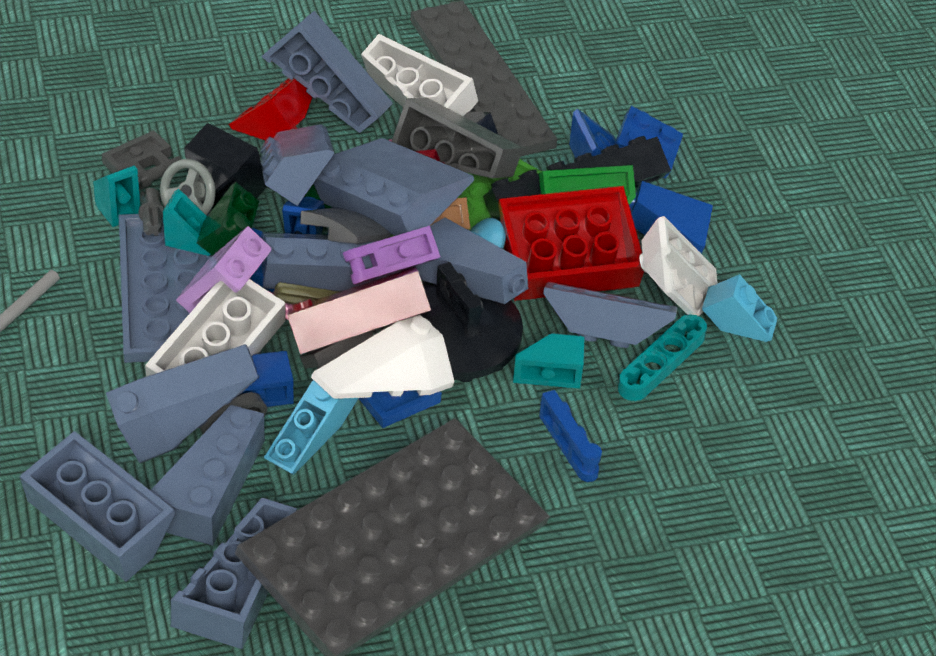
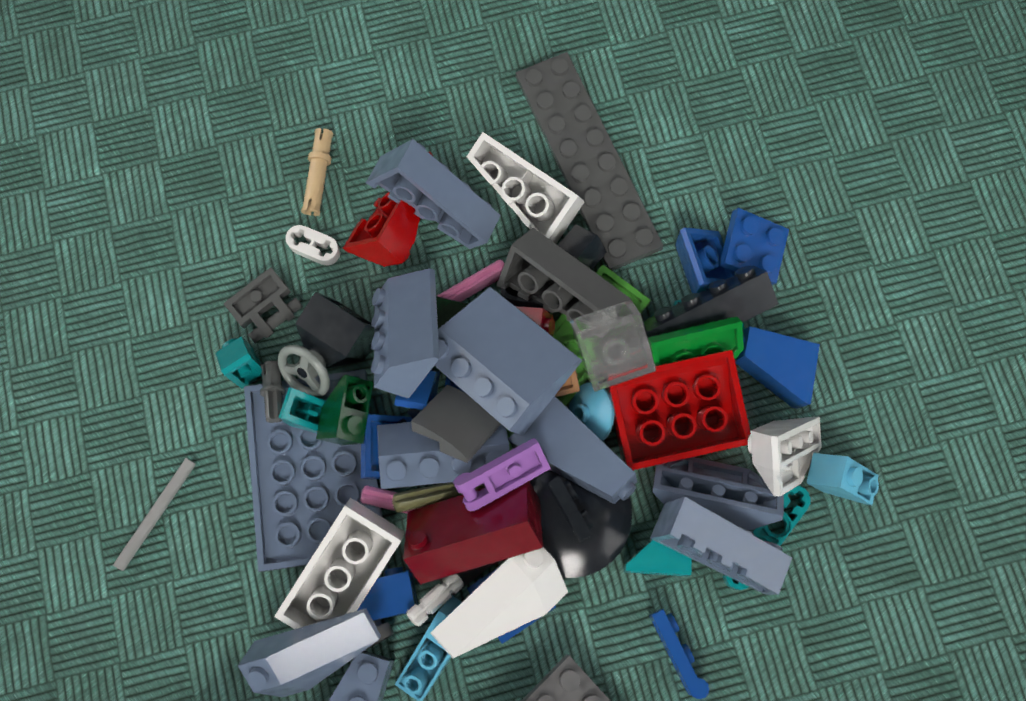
camera: 10 degrees right, 30 degrees up
(191, 119) = (315, 239): none -> white beam
(207, 62) = (319, 160): none -> tan pin
(231, 264) = (342, 497): lavender panel -> none
(299, 376) = (434, 599): none -> white axle
(505, 163) = (613, 345): none -> clear container
(611, 330) = (721, 545): none -> sand blue wedge

